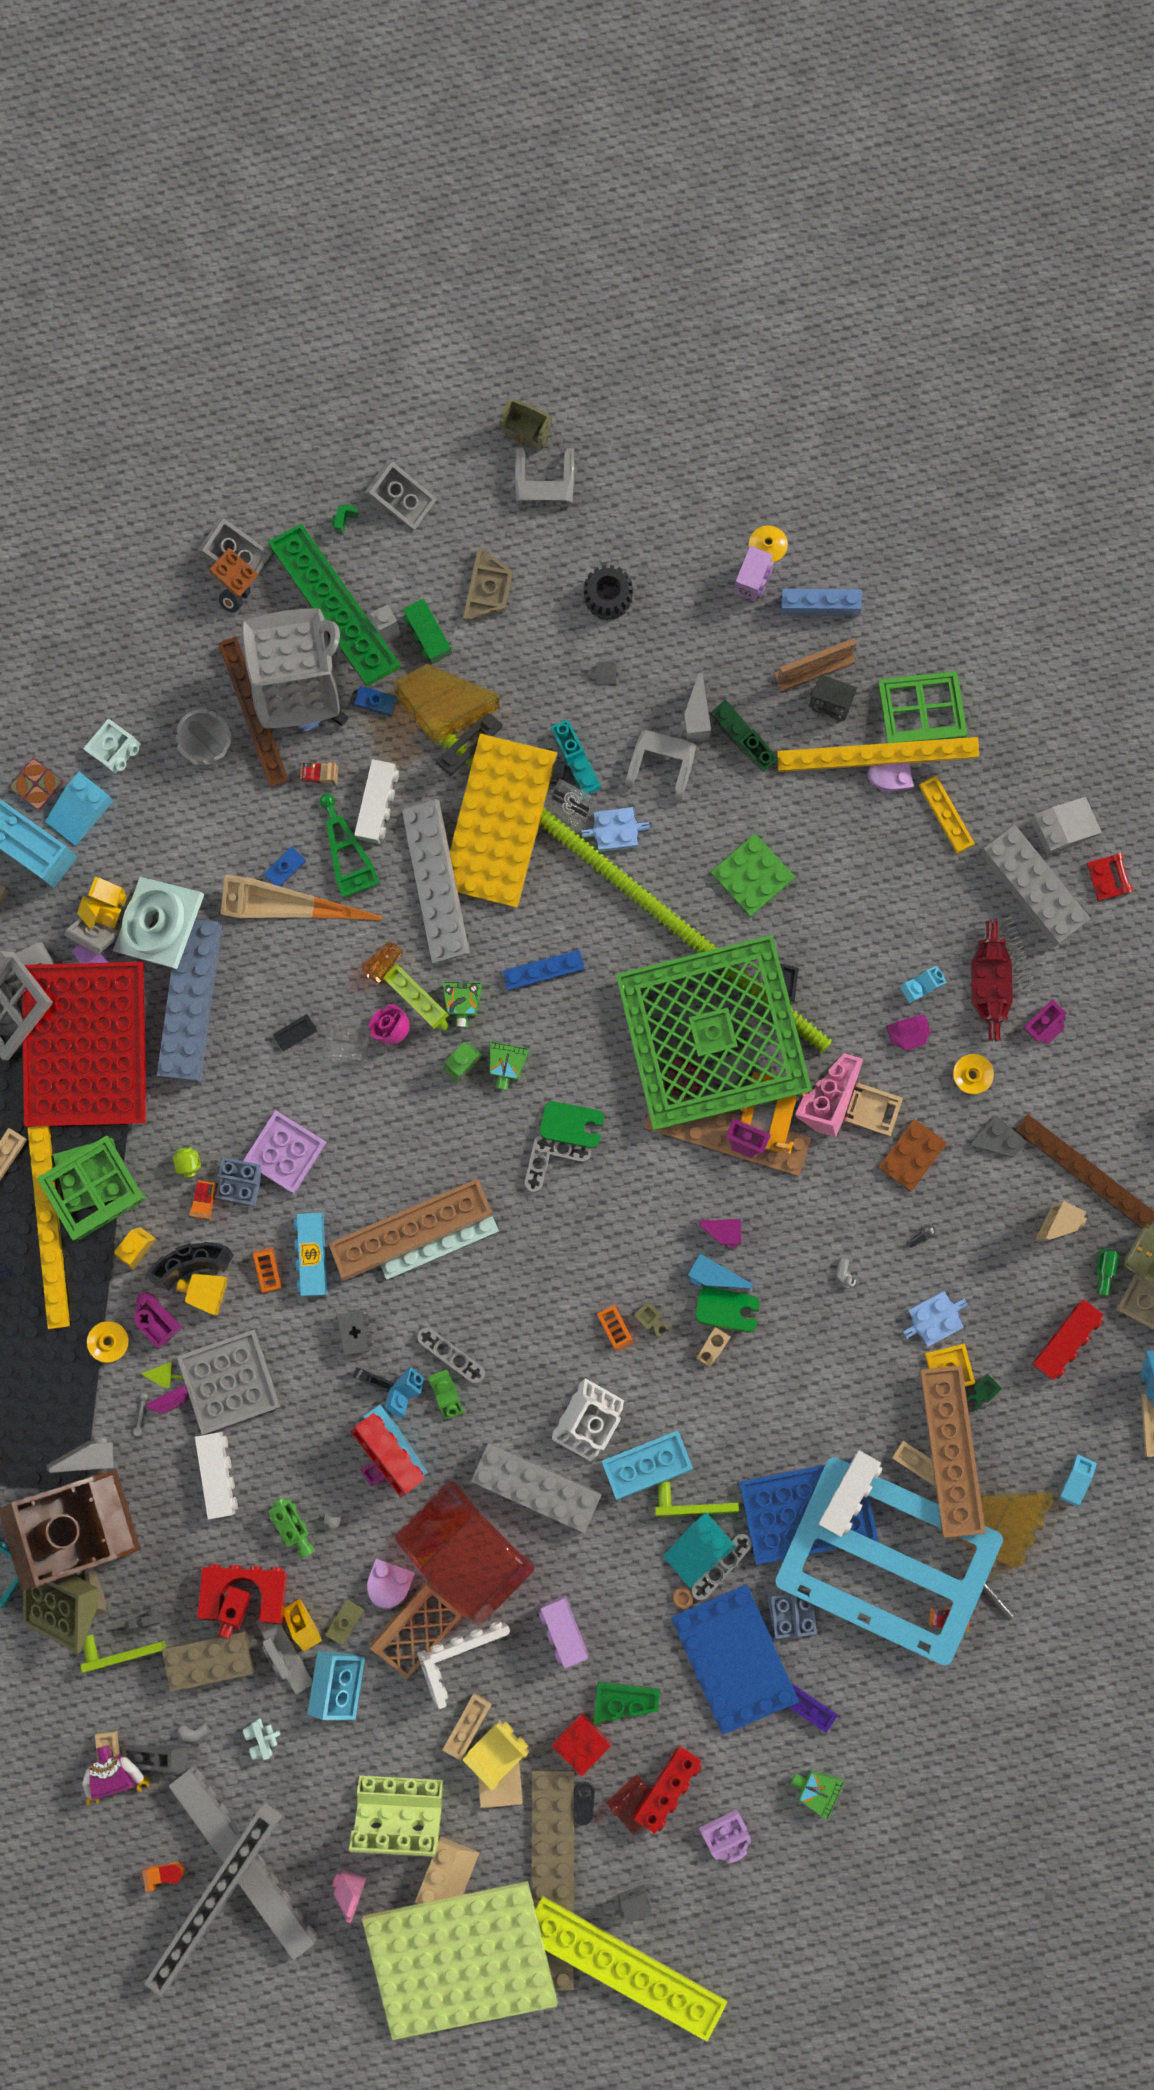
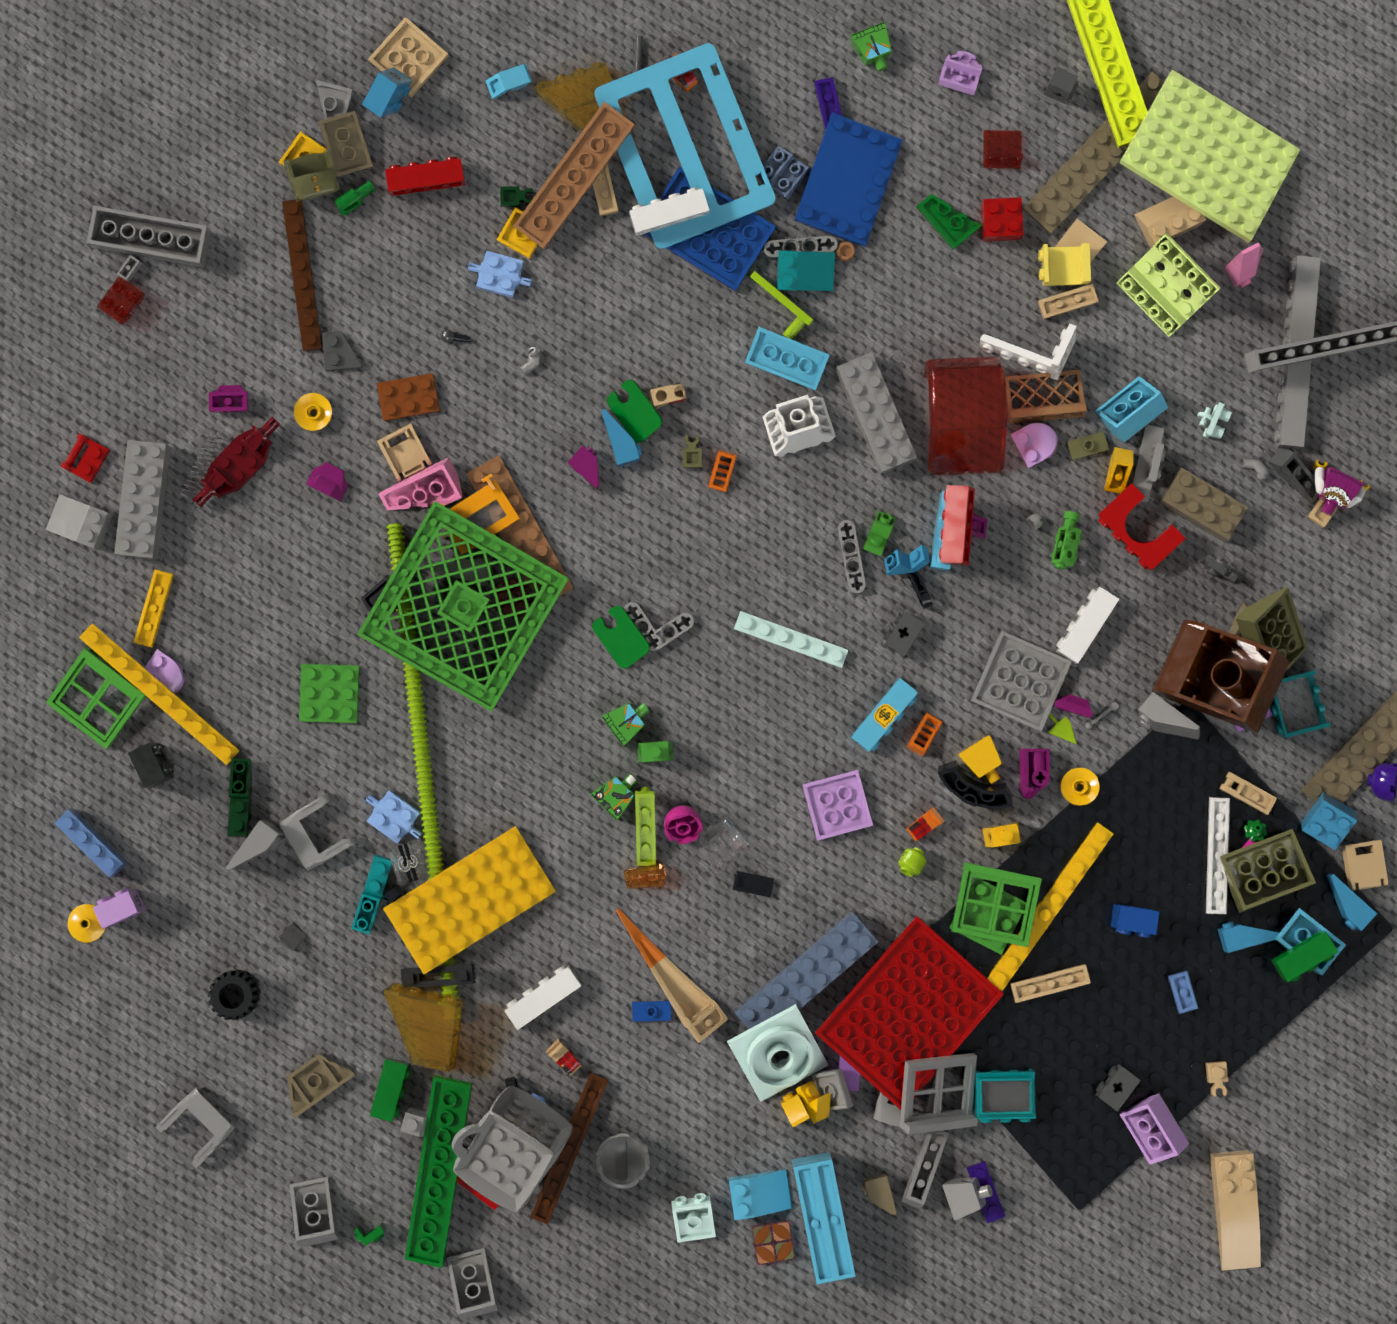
camera: 145 degrees left, 5 degrees up
(93, 1662) = (1282, 575): lime piece -> none
(162, 1873) = (1353, 391): leg -> none
(235, 1604) = (1150, 523): red torso -> none
(236, 577) = (489, 1261): dark orange plate -> none
(238, 1181) = (888, 814): sand blue slope -> none
(355, 881) = (607, 951): green plate -> none
(376, 700) = (474, 1073): blue plate -> none
(410, 1229) = (800, 668): medium nougat plate -> none
(435, 881) = (555, 898): light grey plate -> none
(526, 424) = (173, 1177): olive piece -> none
(543, 970) = (538, 764): blue plate -> none
(563, 1632) = (946, 301): lavender brick -> none
(583, 1806) = (1037, 179): black piece -> none
(667, 1789) = (972, 138): red brick -> none
(747, 1138) = (509, 511): magenta slope -> none
(816, 664) = (140, 800): medium nougat fence -> none
(923, 984) = (286, 505): medium azure slope -> none
(1061, 1220) = (354, 255): tan slope -> none

